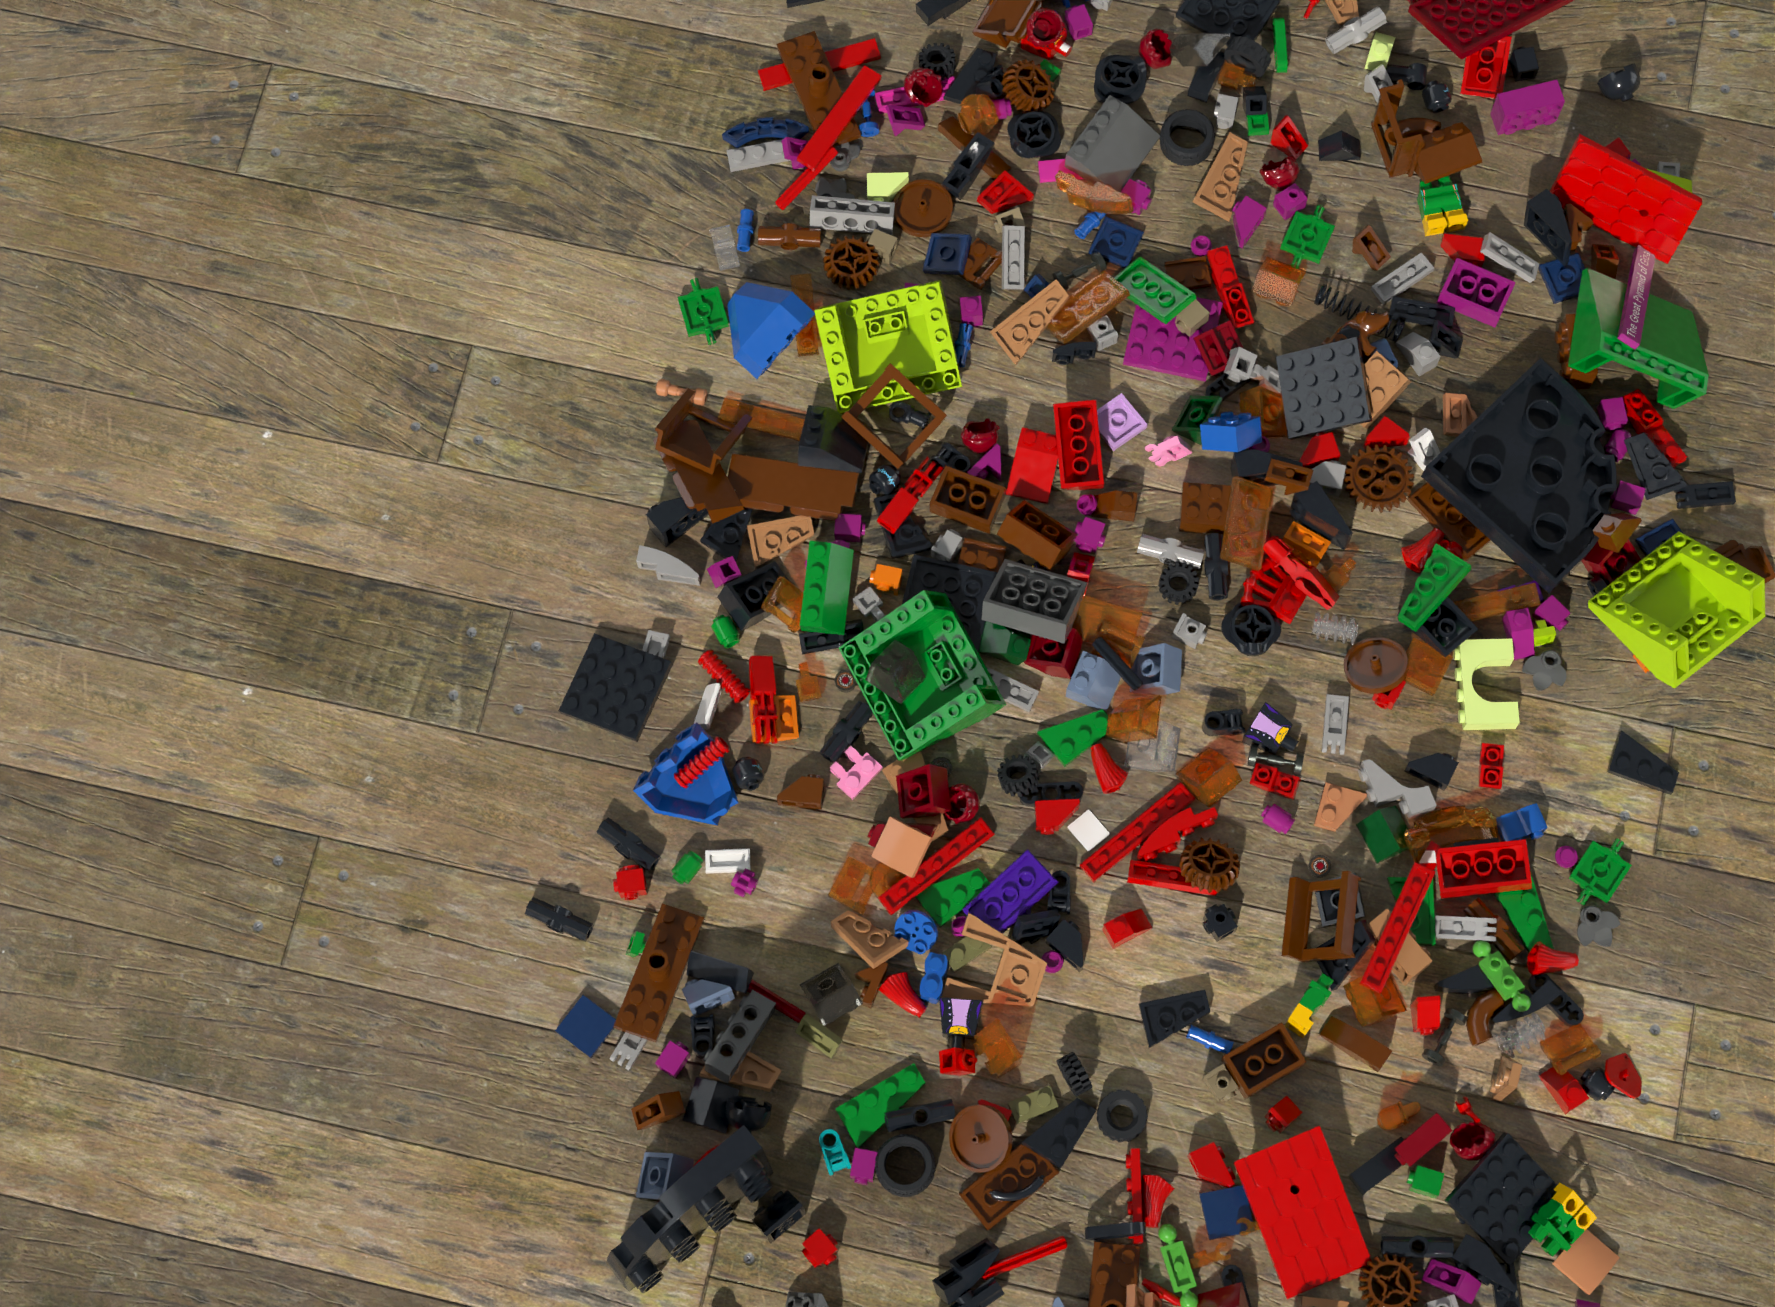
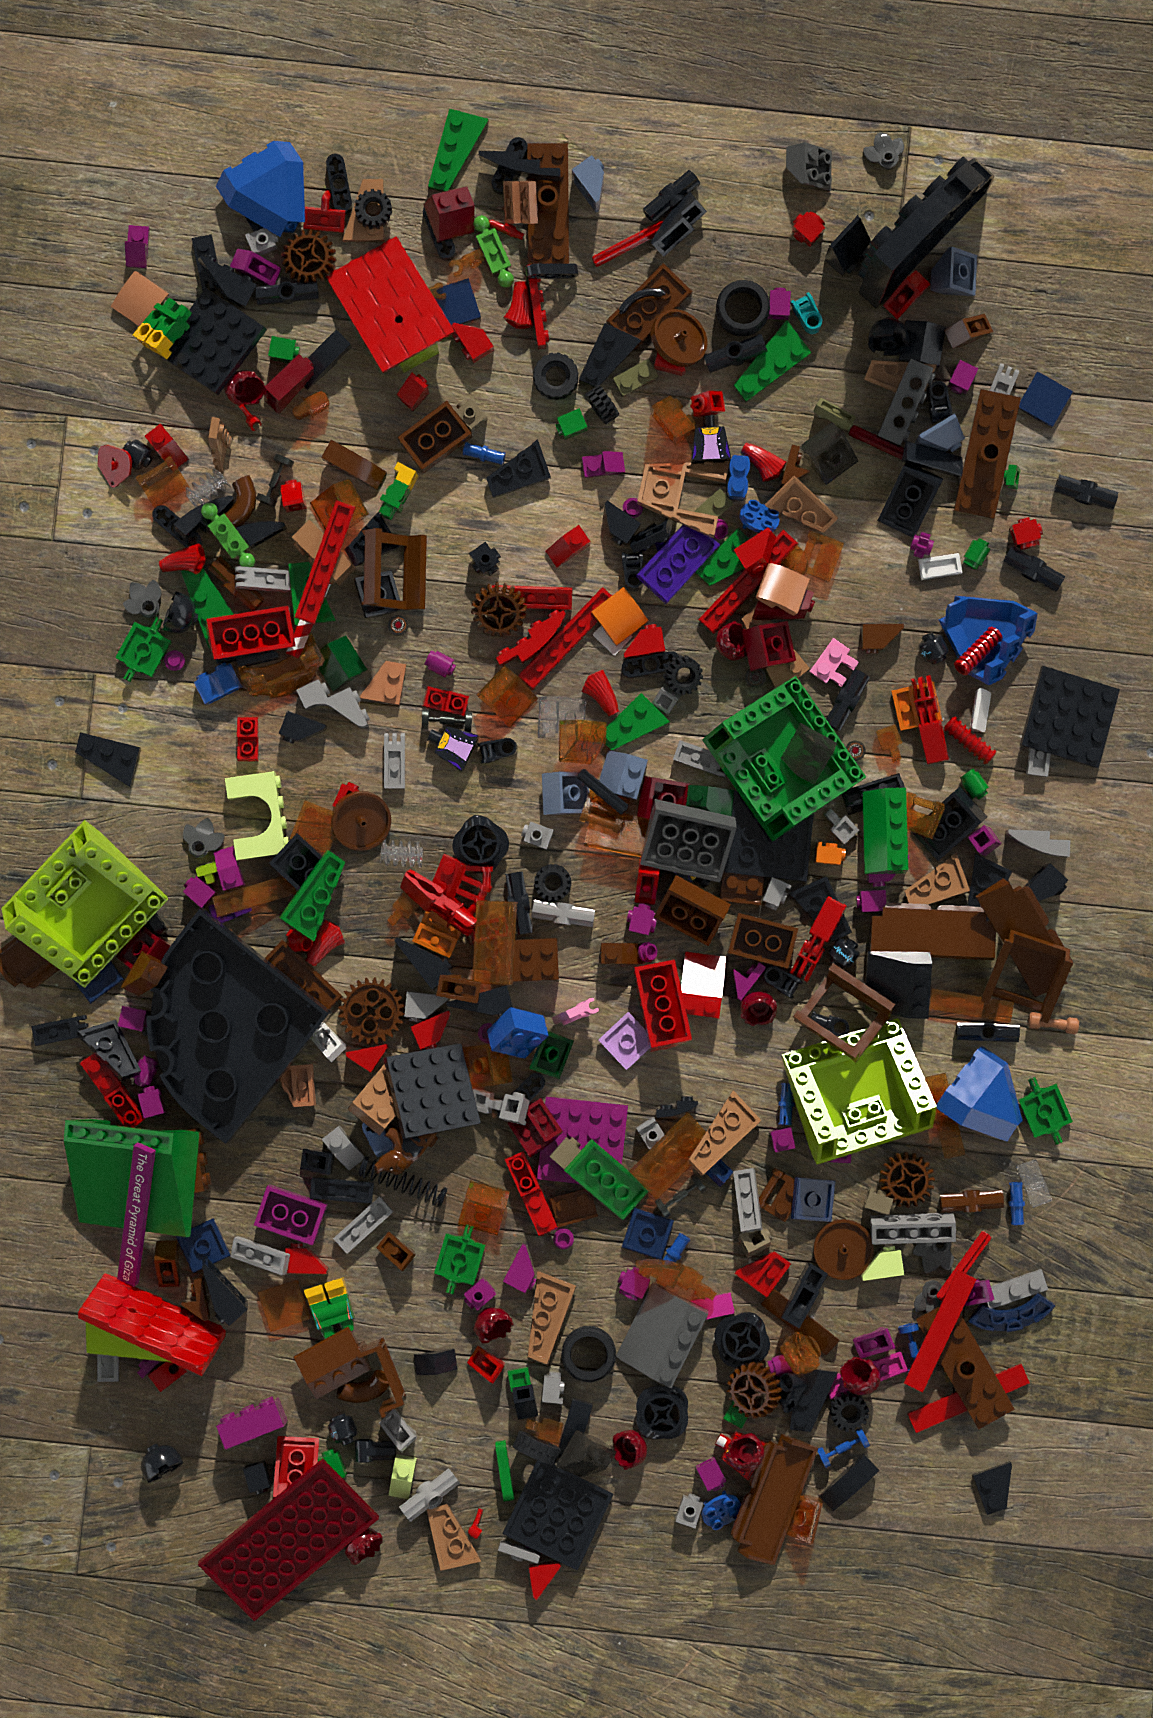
camera: 170 degrees right, 15 degrees up
(749, 933) = (910, 499): none -> black slope
(762, 391) = (1001, 1032): none -> black piece
(925, 890) = (756, 551): none -> red slope
(966, 25) = (843, 1447): none -> blue wheel
(1078, 1012) = (603, 464): none -> magenta slope
(1079, 847) = (620, 616): none -> orange slope
(1110, 1059) = (571, 424): none -> green brick
(1449, 66) = (335, 1460): none -> green brick
(1487, 214) = (284, 1305): none -> clear orange tile
(1558, 901) = (180, 614): none -> black cylinder

